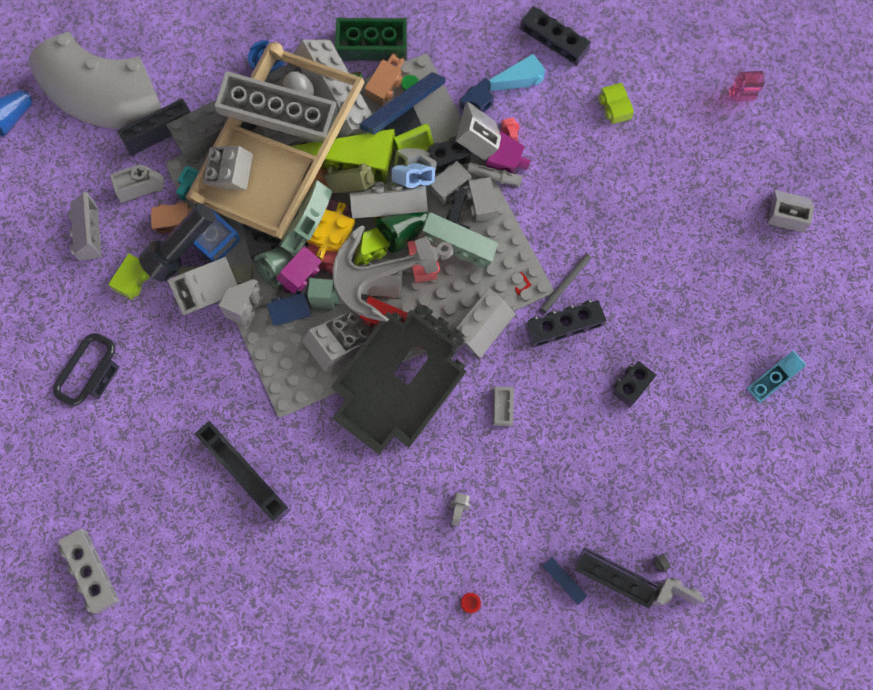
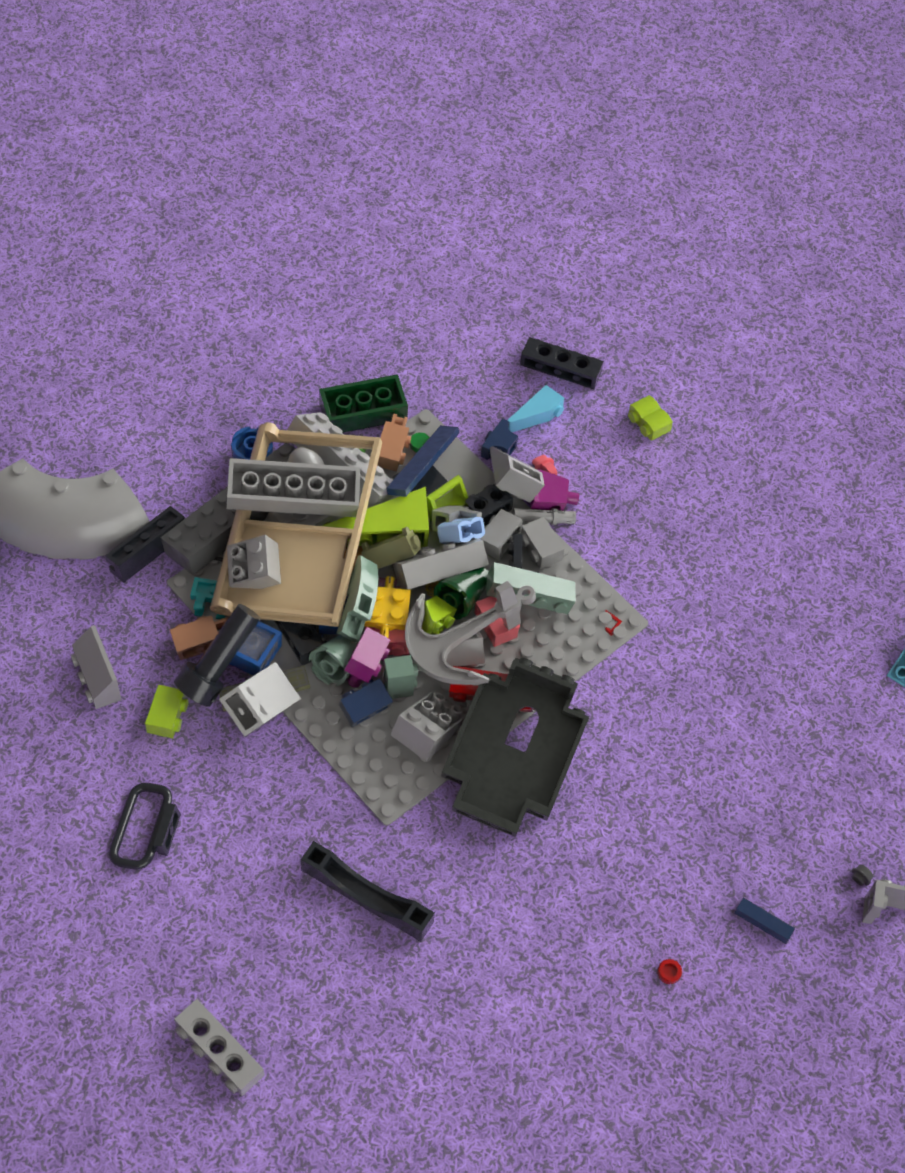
camera: 20 degrees left, 15 degrees down
(136, 182) = (141, 608): light grey piece -> none
(240, 302) = (309, 706): light grey slope -> none
(460, 503) = (623, 868): light grey piece -> none
(485, 322) = (589, 665): light grey slope -> none
(503, 406) = (635, 753): light grey plate -> none
(566, 282) = (658, 611): dark grey bar -> none
(590, 308) = (648, 671): black brick -> none
(616, 577) = (820, 899): black brick -> none
(636, 386) = (768, 697): black brick -> none
(747, 86) = (781, 372): clear pink brick -> none
(790, 211) = (869, 488): light grey slope -> none

